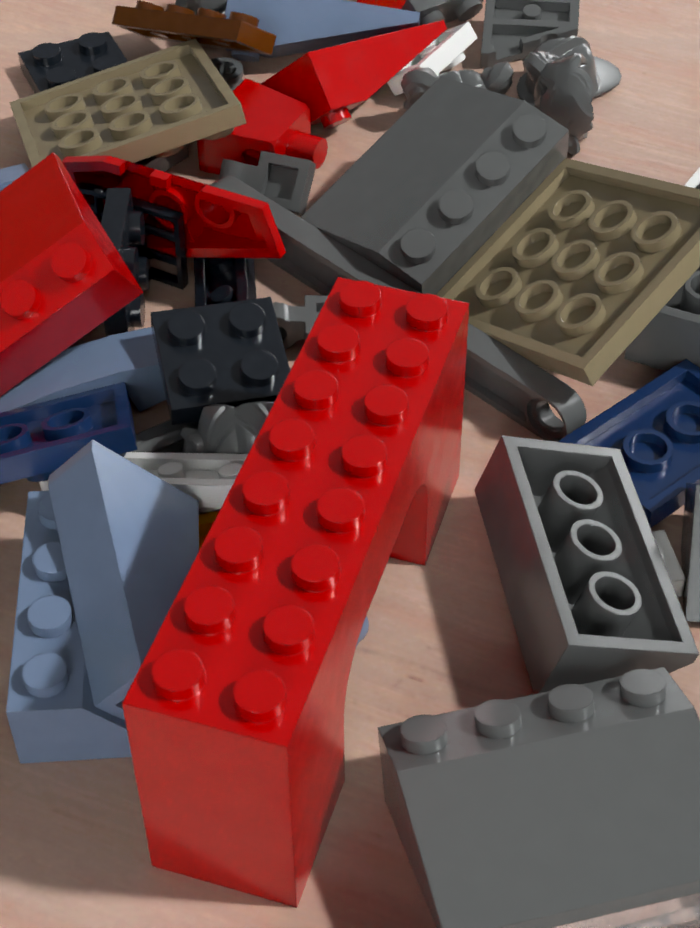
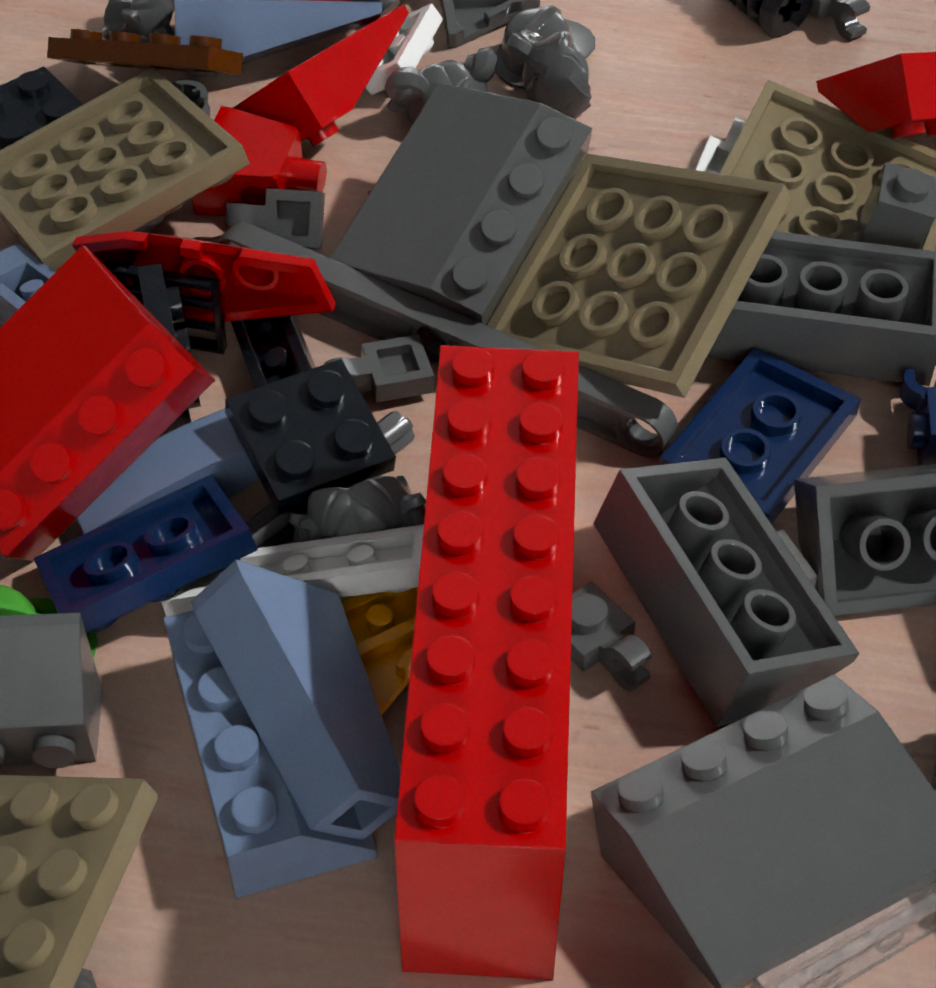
camera: 15 degrees left, 5 degrees up
(447, 588) = (607, 636): none -> dark grey plate

